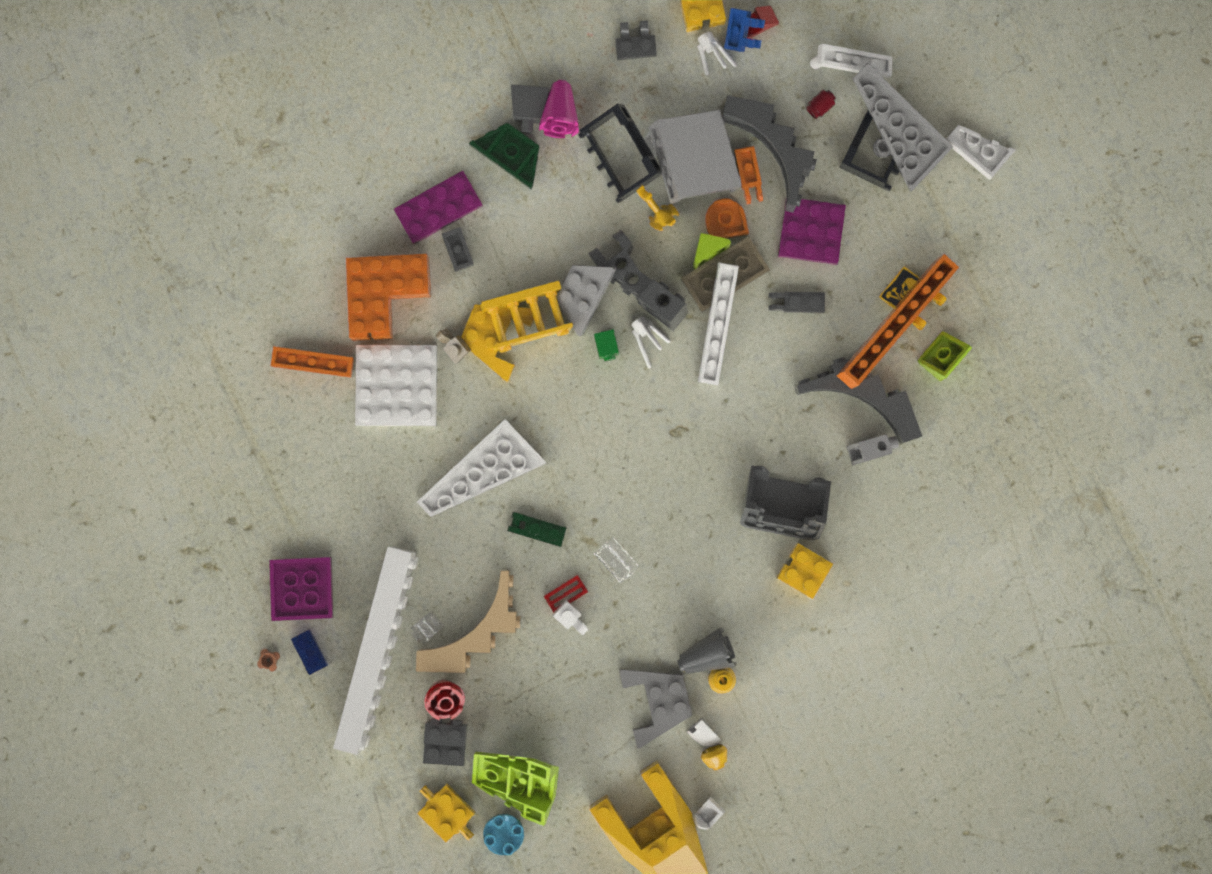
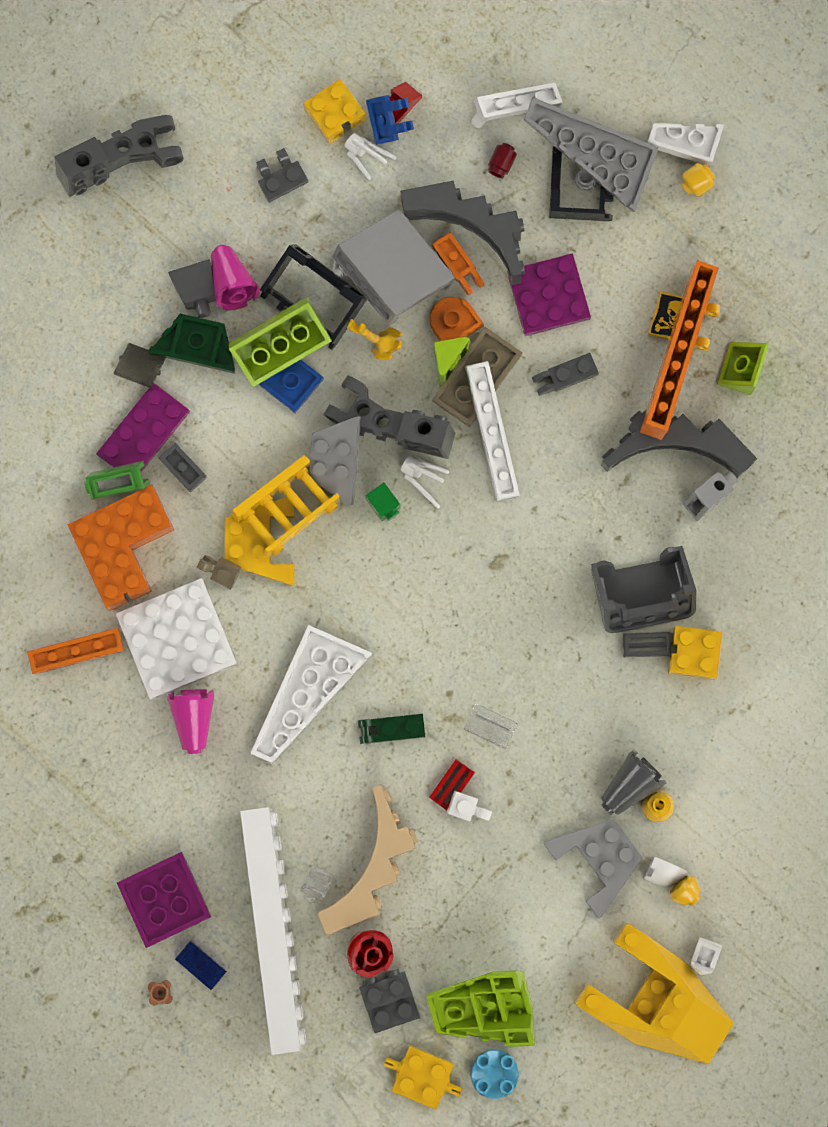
camera: 20 degrees left, 5 degrees down
(382, 453) = (192, 717): none -> dark pink cone
(399, 238) = (115, 480): none -> bright green window
(457, 151) = (139, 365): none -> clear smoke piece
(574, 215) = (293, 385): none -> blue tile
(577, 179) = (279, 341): none -> lime slope
(752, 541) = (626, 645): none -> dark grey tile
(974, 187) = (698, 180): none -> yellow head

